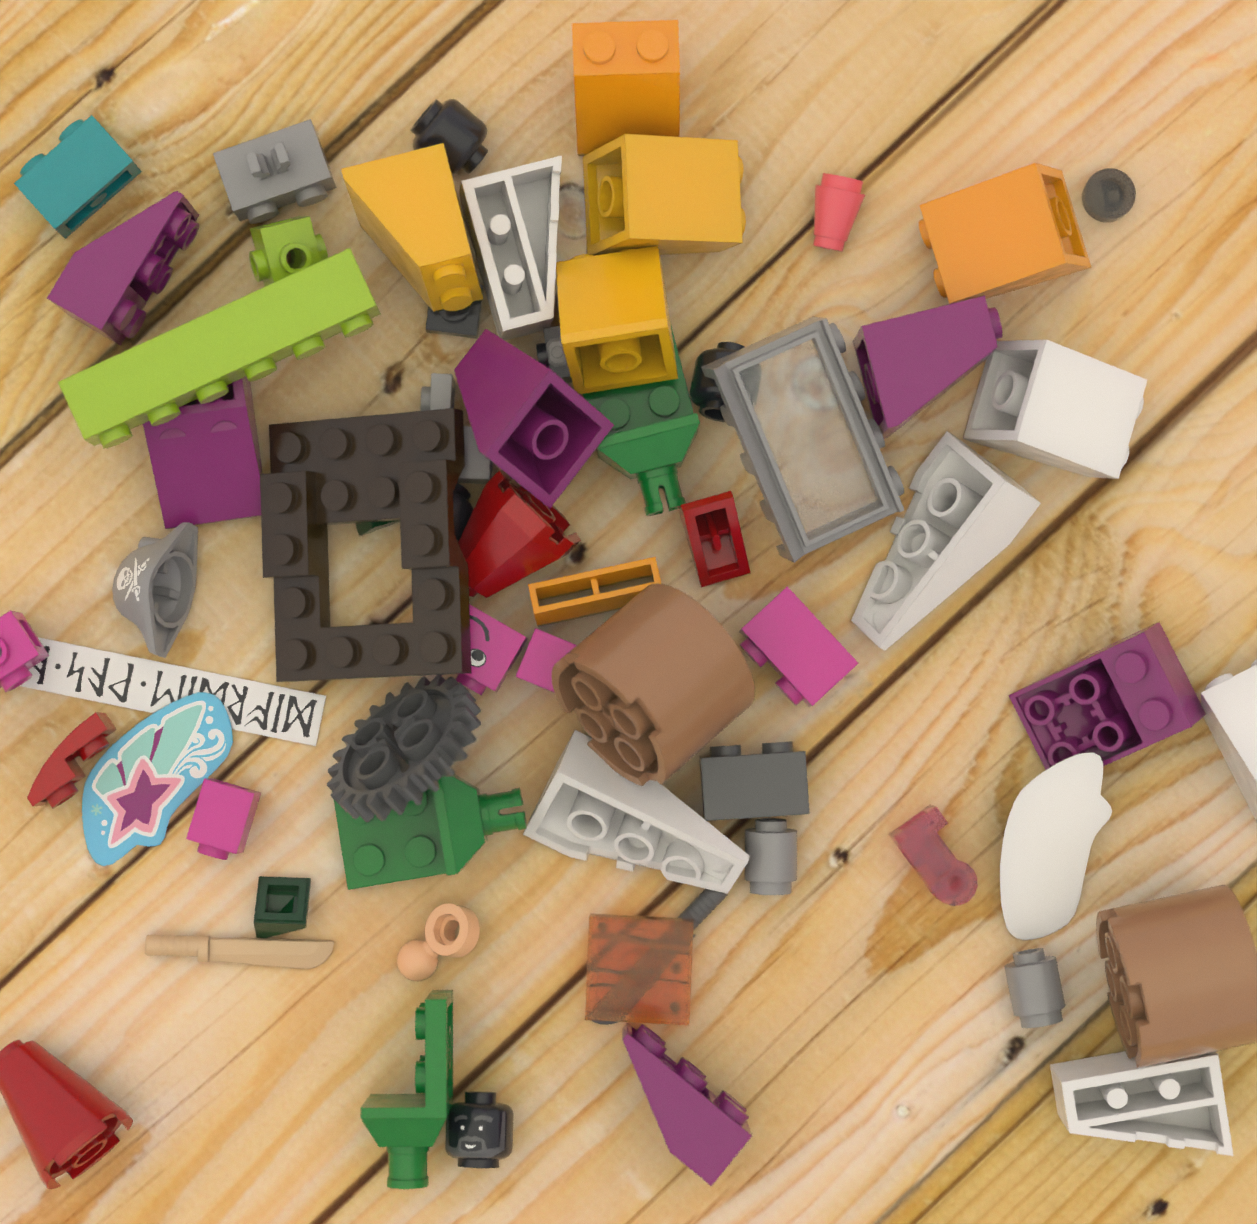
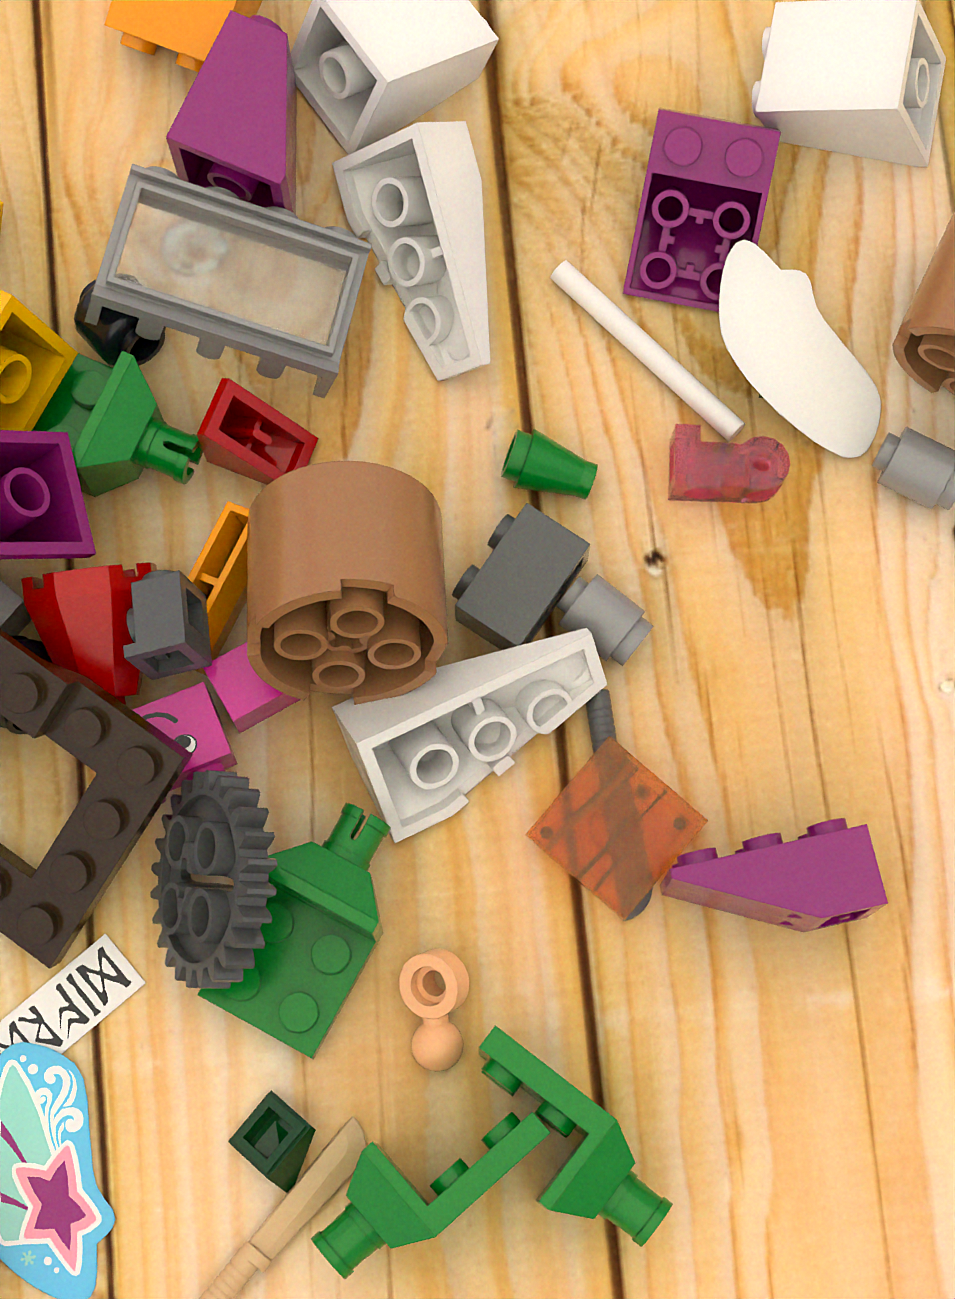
camera: 50 degrees left, 10 degrees down
(222, 818) = (138, 1128): dark pink brick -> none
(293, 1019) = (393, 1212): none -> green plate
(479, 1131) = (657, 1110): black head -> none
(541, 590) = (167, 625): none -> dark grey brick
(796, 648) = (427, 436): dark pink brick -> none
(836, 209) = (46, 106): coral cone -> none
(845, 739) = (546, 466): none -> green cone
(980, 743) = (647, 350): none -> white bar

